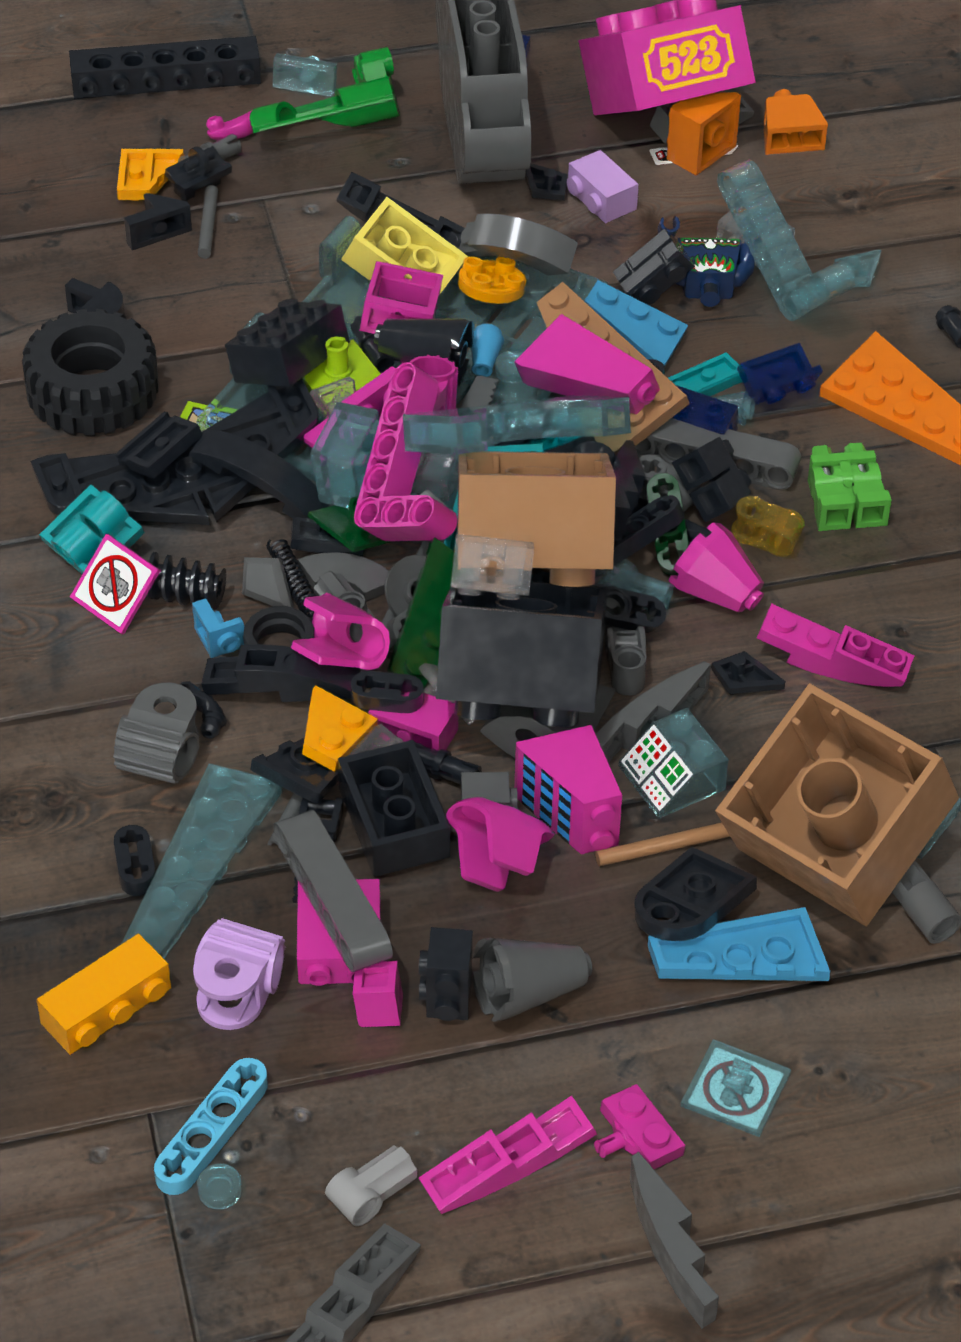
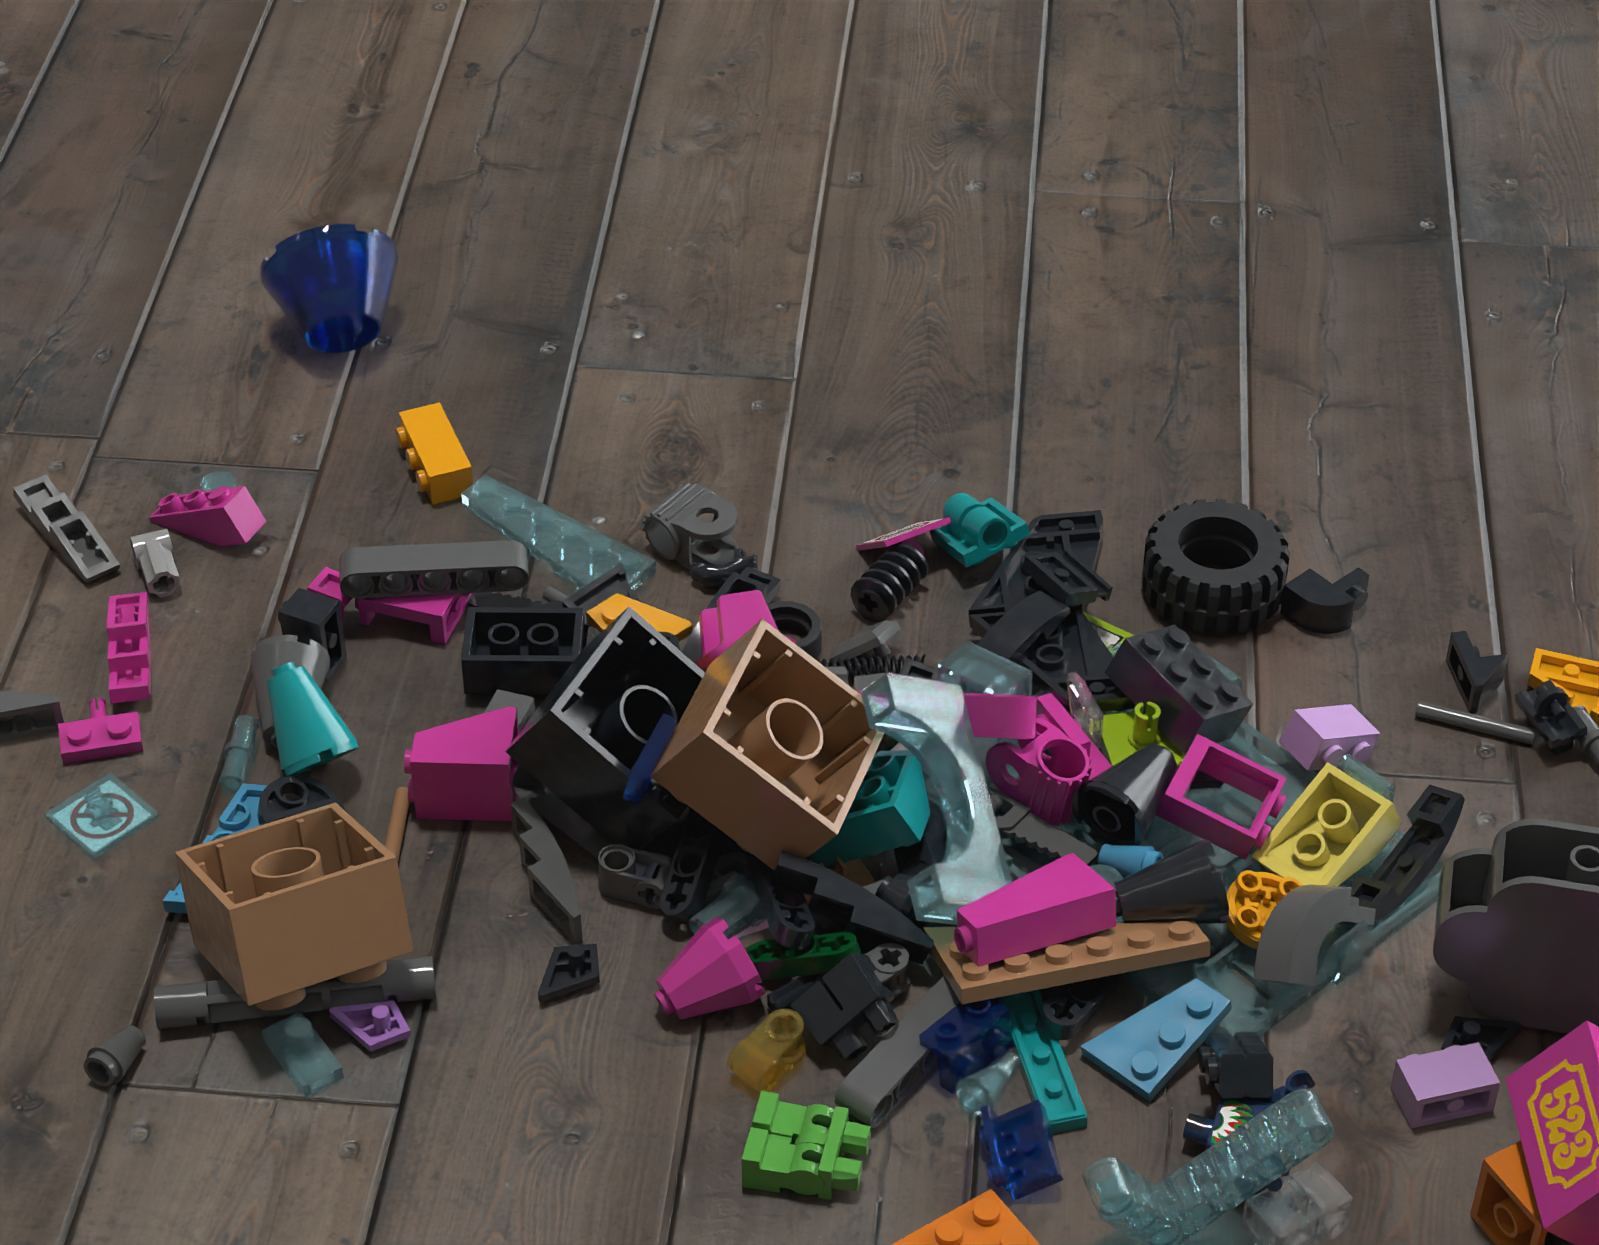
camera: 110 degrees right, 5 degrees down
(127, 861) = (576, 500): black beam -> none
(206, 1122) = (284, 489): medium azure beam -> none
(215, 634) = (821, 589): dark azure bracket -> none
(233, 965) = (418, 516): lavender piece -> none
(279, 1169) = (215, 516): none -> dark pink slope
(280, 276) = (1328, 735): none -> lavender brick
(475, 552) = (684, 671): clear brick -> none
(495, 840) = (434, 692): dark pink piece -> none
(512, 303) = (1175, 889): none -> black cone
(589, 576) = (640, 775): none -> clear blue tile
(598, 913) = (305, 722): none -> teal cone
(614, 996) = (239, 753): none -> clear light blue pin
(675, 764) = (476, 879): clear light blue slope -> none
(842, 656) = (558, 1050): dark pink slope -> none

